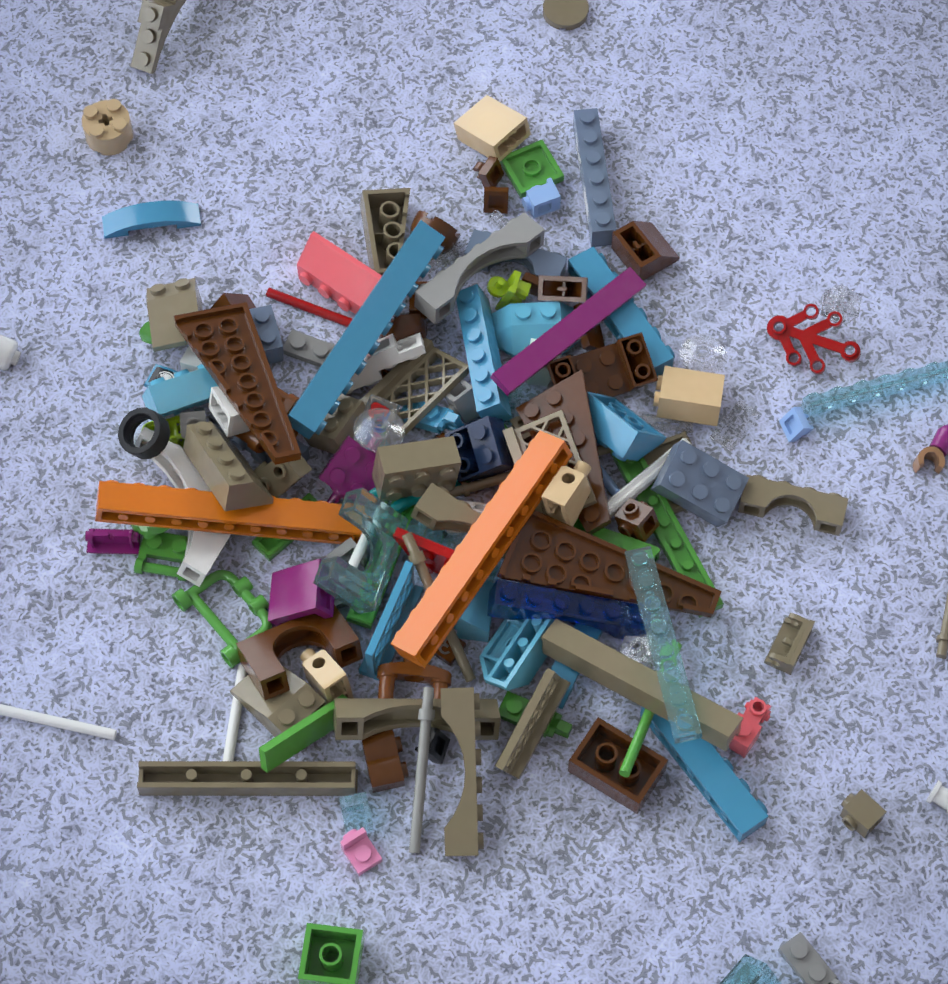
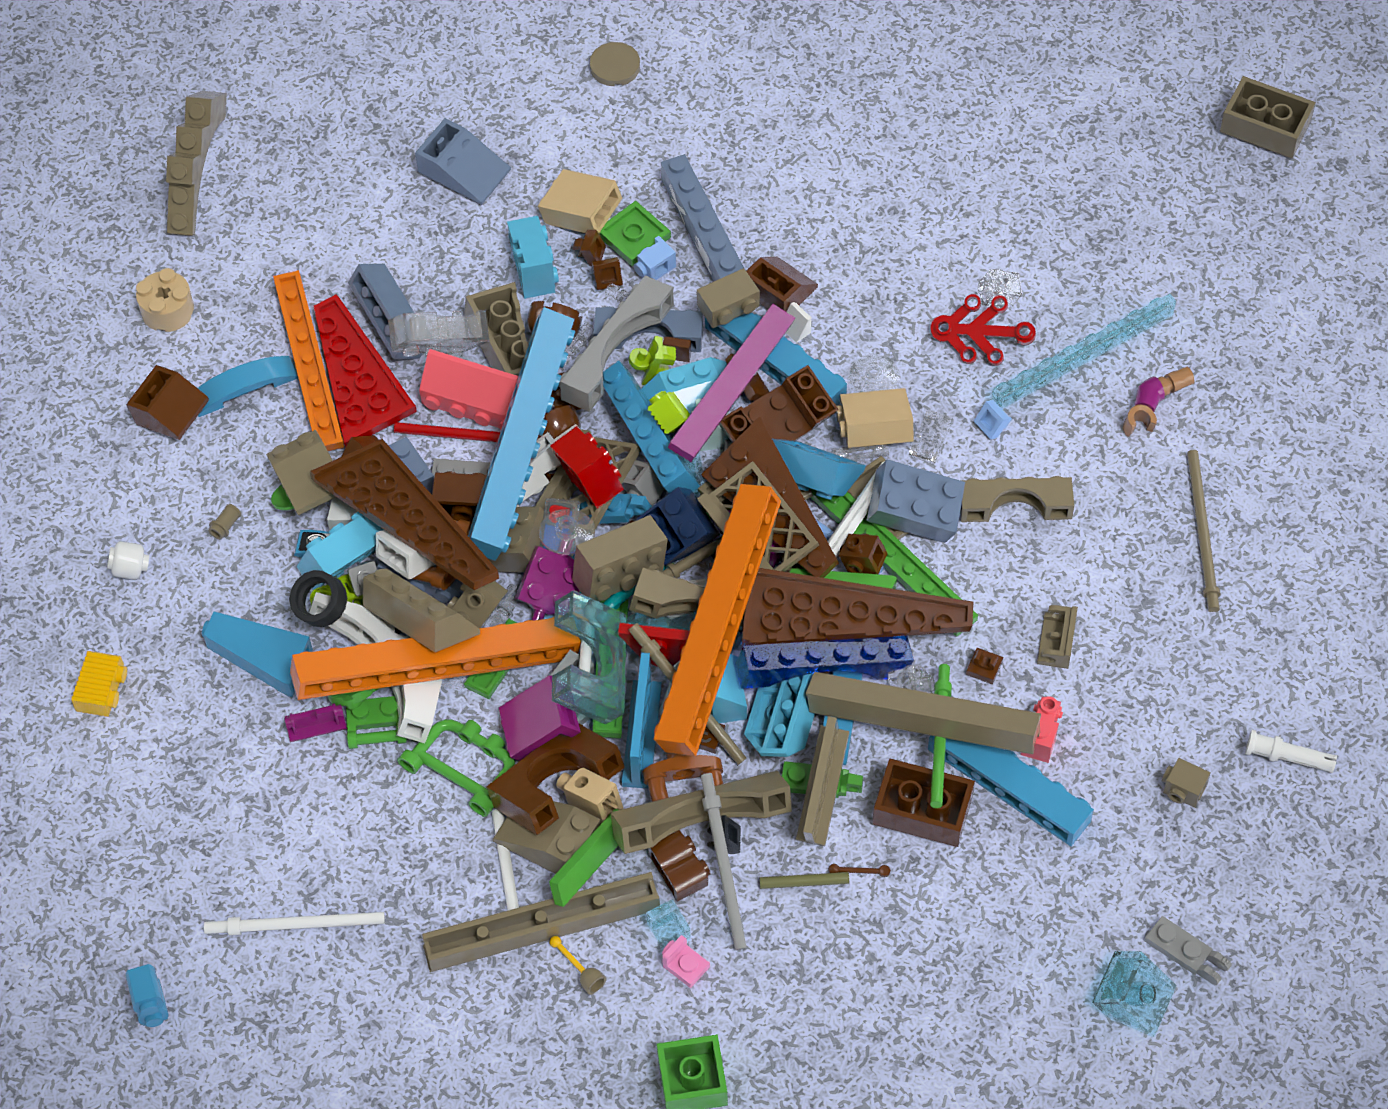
camera: 15 degrees left, 5 degrees down
(78, 219) = (166, 403): none -> reddish brown slope
(84, 459) = (256, 648): none -> dark azure slope
(94, 339) = (220, 527): none -> dark tan pin
(212, 212) = (308, 359): none -> orange plate
(251, 242) = (361, 382): none -> red wing
(273, 842) = (590, 978): none -> dark tan hinge
(294, 186) = (380, 300): none -> sand blue brick
(295, 369) = (458, 493): none -> reddish brown brick
(306, 484) = (504, 609): none -> clear axle
(326, 218) = (447, 334): none -> clear wedge
(400, 65) = (460, 162): none -> sand blue slope
(415, 375) = (588, 466): none -> red brick
(435, 168) = (532, 256): none -> medium azure wedge
(461, 831) = (747, 790): dark tan arch -> none
(496, 807) = (804, 880): none -> olive bar
(504, 342) = (668, 411): none -> lime brick
(562, 288) = (710, 343): slope -> none
(564, 817) = (883, 871): none -> reddish brown hinge
(567, 493) = (788, 540): tan torso -> none
(591, 252) = (728, 298): none -> dark tan brick
(652, 291) = (802, 324): none -> white slope
(663, 645) = (935, 665): clear light blue plate -> none
(715, 651) = (984, 666): none -> reddish brown tile

